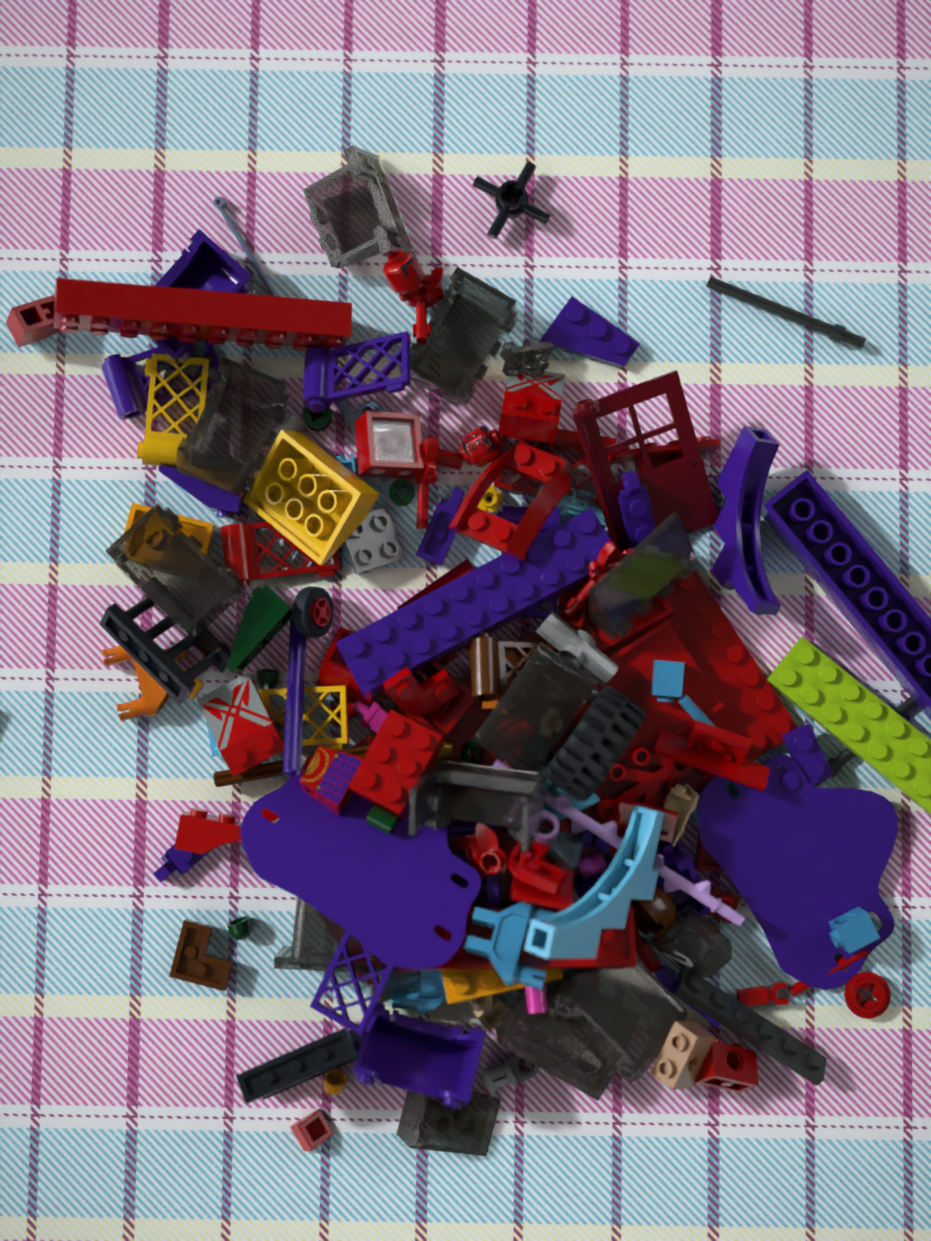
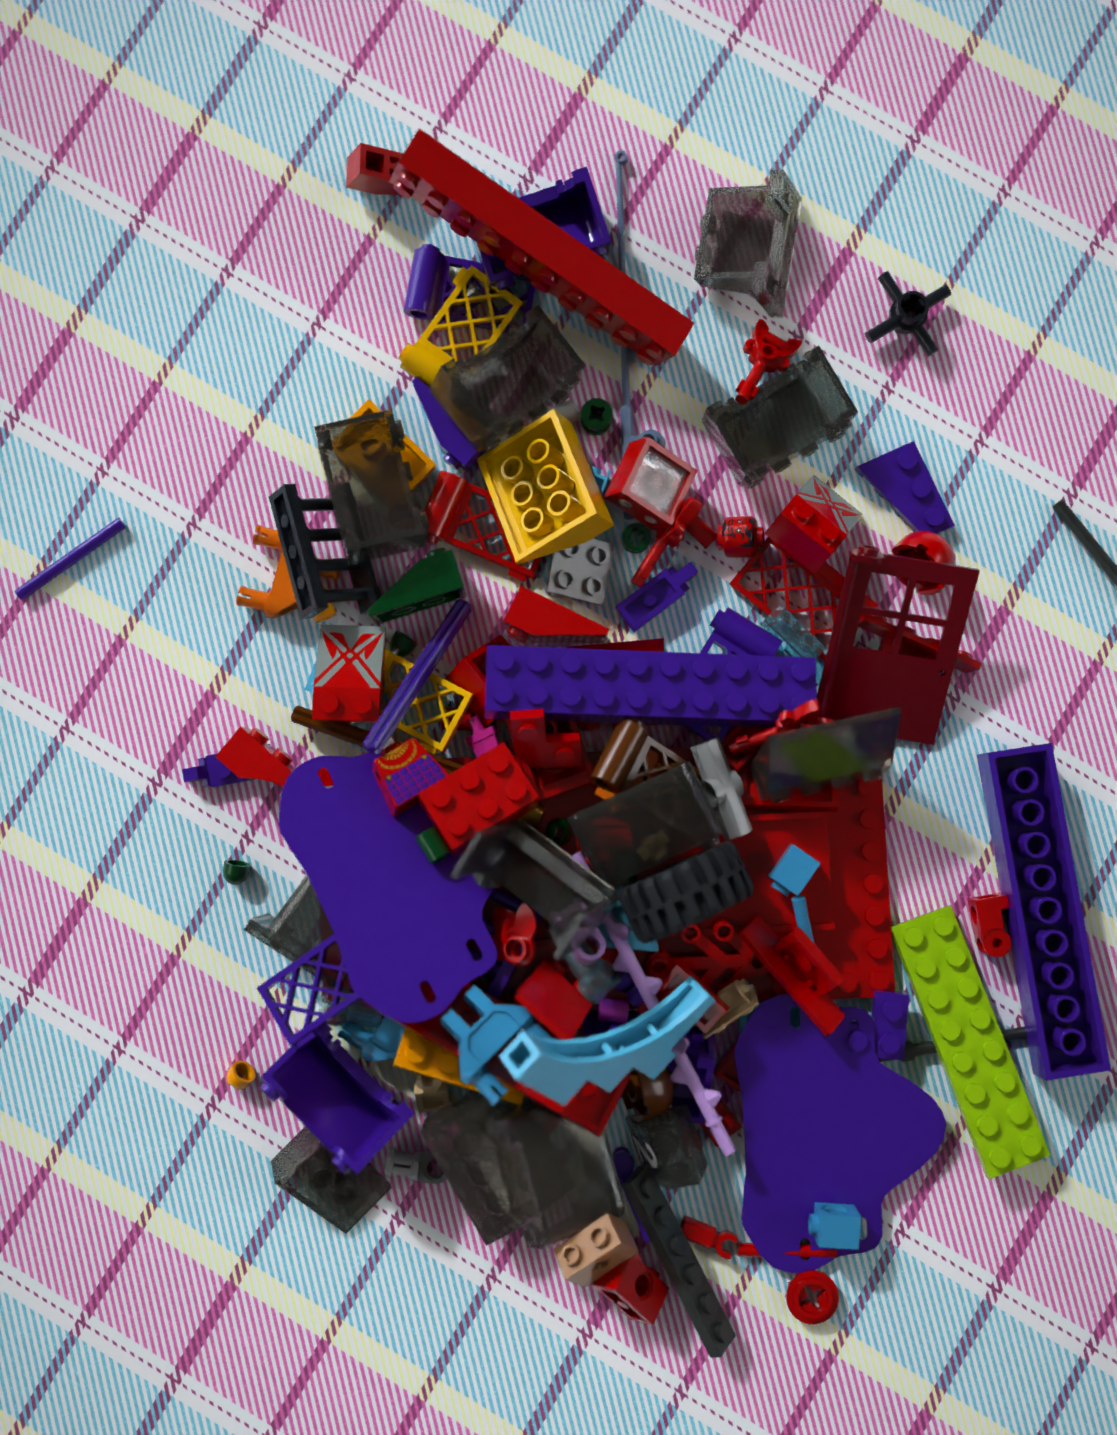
camera: 30 degrees right, 0 degrees up
(193, 963) = (170, 878): reddish brown plate -> none
(299, 1065) = (213, 1039): black fence -> none
(312, 1130) = (191, 1109): red slope -> none
(313, 612) = (482, 604): black wheel -> none
(322, 371) = (626, 379): dark purple piece -> none
(368, 597) = (544, 621): none -> red slope
(403, 272) = (762, 323): red head -> none
(494, 504) = (714, 601): yellow plate -> none
(498, 532) = (713, 633): red wedge -> none
(529, 358) = (835, 476): clear smoke hips -> none
(533, 870) = (552, 981): red plate -> none
(536, 1000) = (482, 1112): dark pink hinge -> none
(627, 374) = (929, 547): none -> red cylinder
(635, 509) = (857, 684): dark purple hinge -> none
(645, 953) = (616, 1128): red bar -> none
(738, 524) = (952, 757): dark purple arch -> none
(839, 634) = (989, 924): none -> red leg

